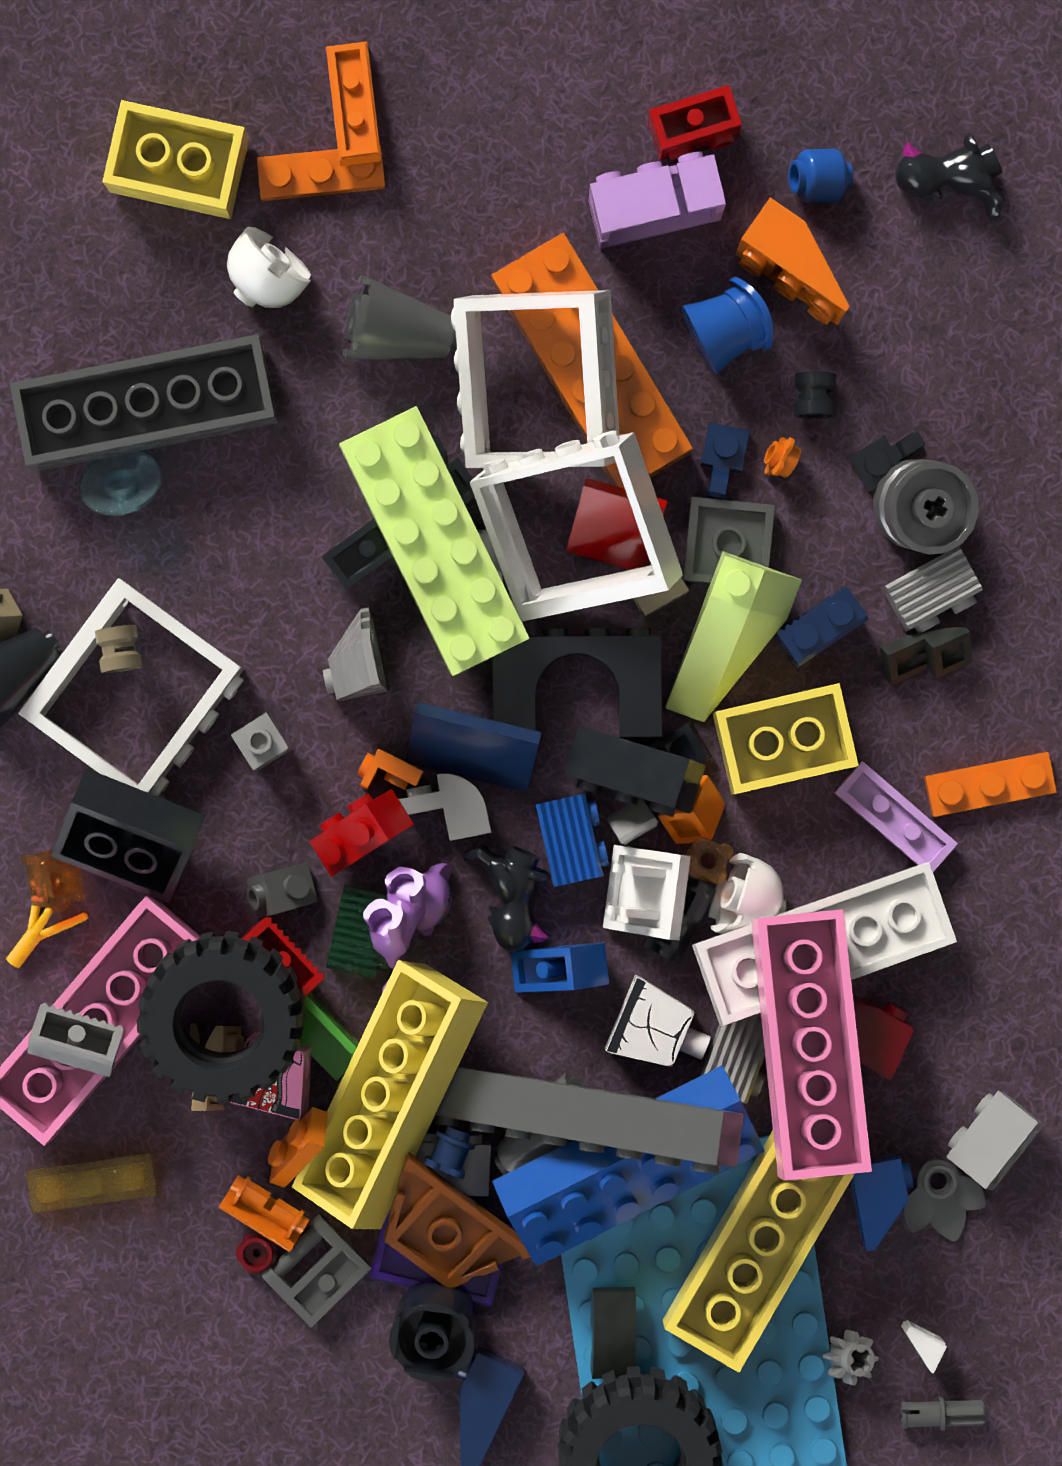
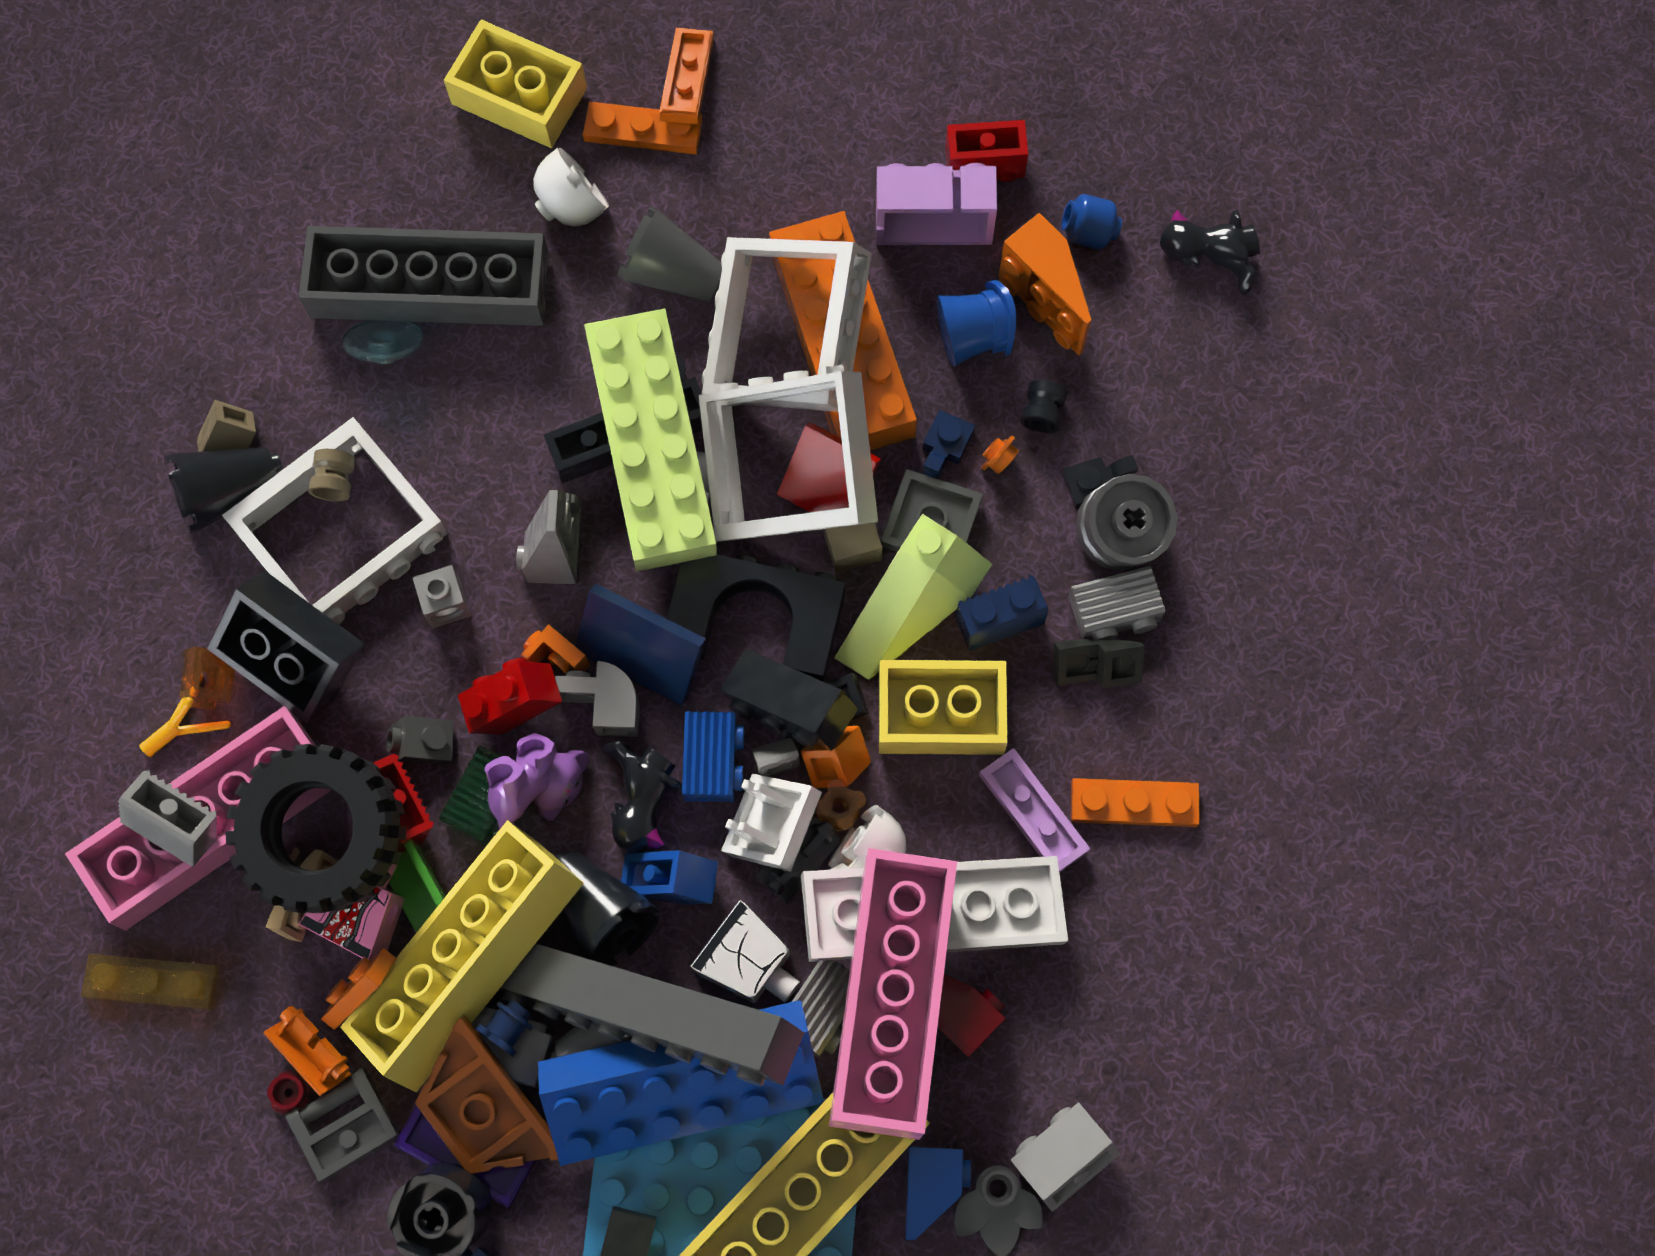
camera: 15 degrees right, 15 degrees down
(513, 1018) = (606, 912): none -> black cone

